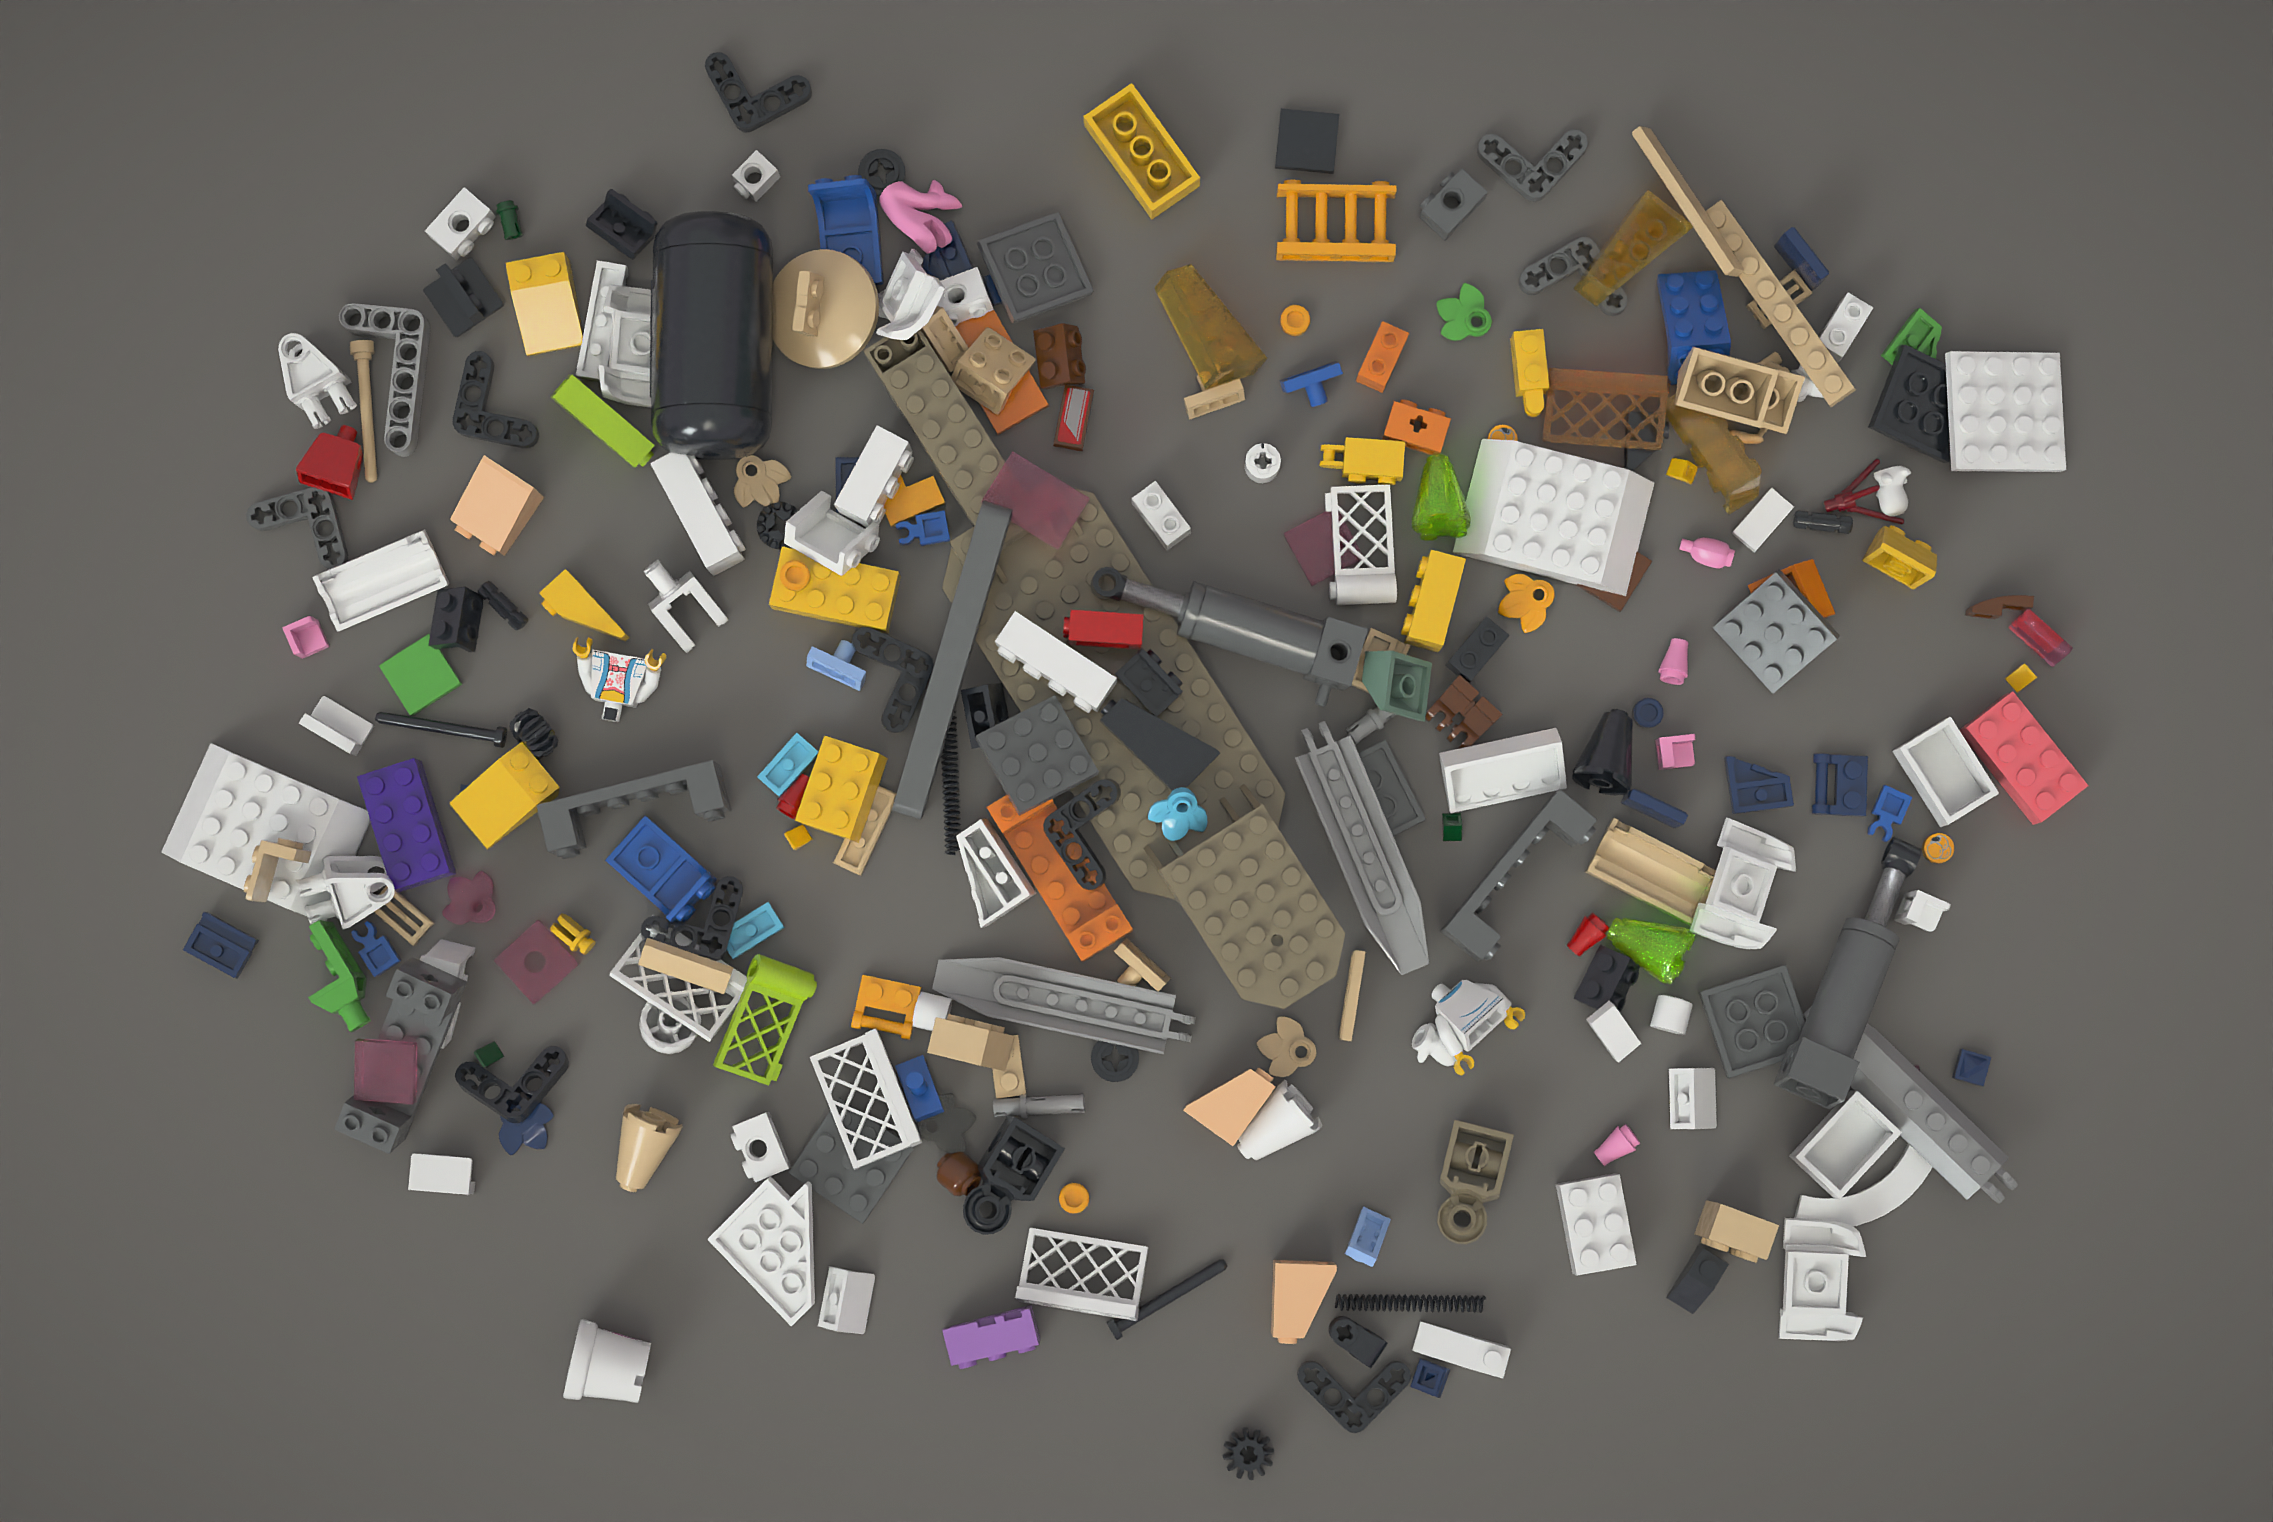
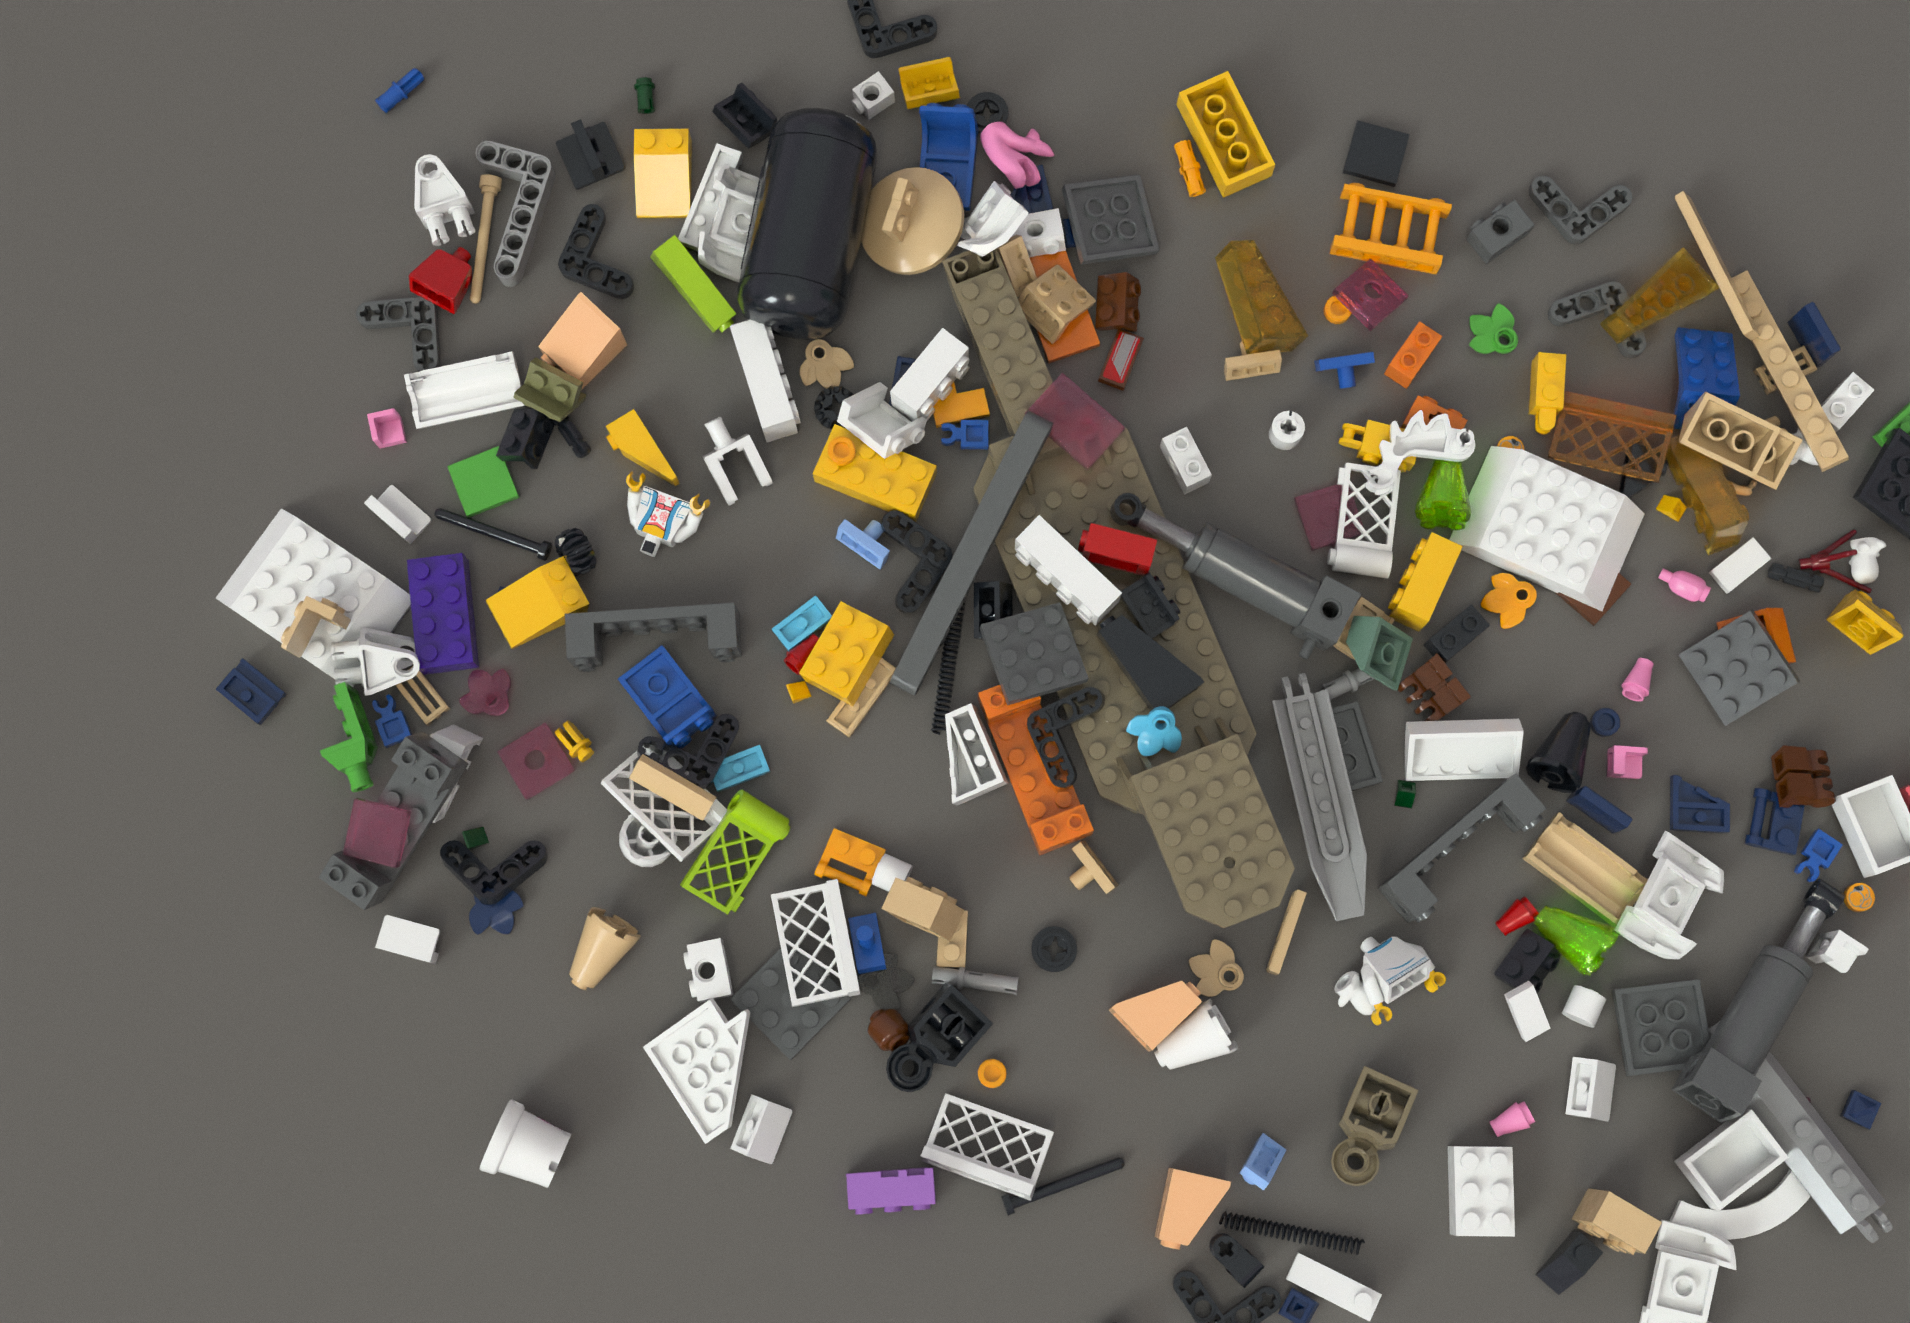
camera: 10 degrees right, 5 degrees down
(242, 262) = (399, 90): none -> blue axle
(462, 207) = (607, 77): white brick -> none
(472, 566) = (550, 390): none -> olive bracket
(813, 151) = (928, 83): none -> yellow bracket
(1062, 1001) = (1015, 887): light grey hinge -> none
(1110, 194) = (1189, 168): none -> light orange pin
(1324, 316) = (1365, 309): none -> clear pink piece
(1403, 451) = (1419, 440): none -> white animal
(1850, 728) = (1802, 777): none -> reddish brown legs

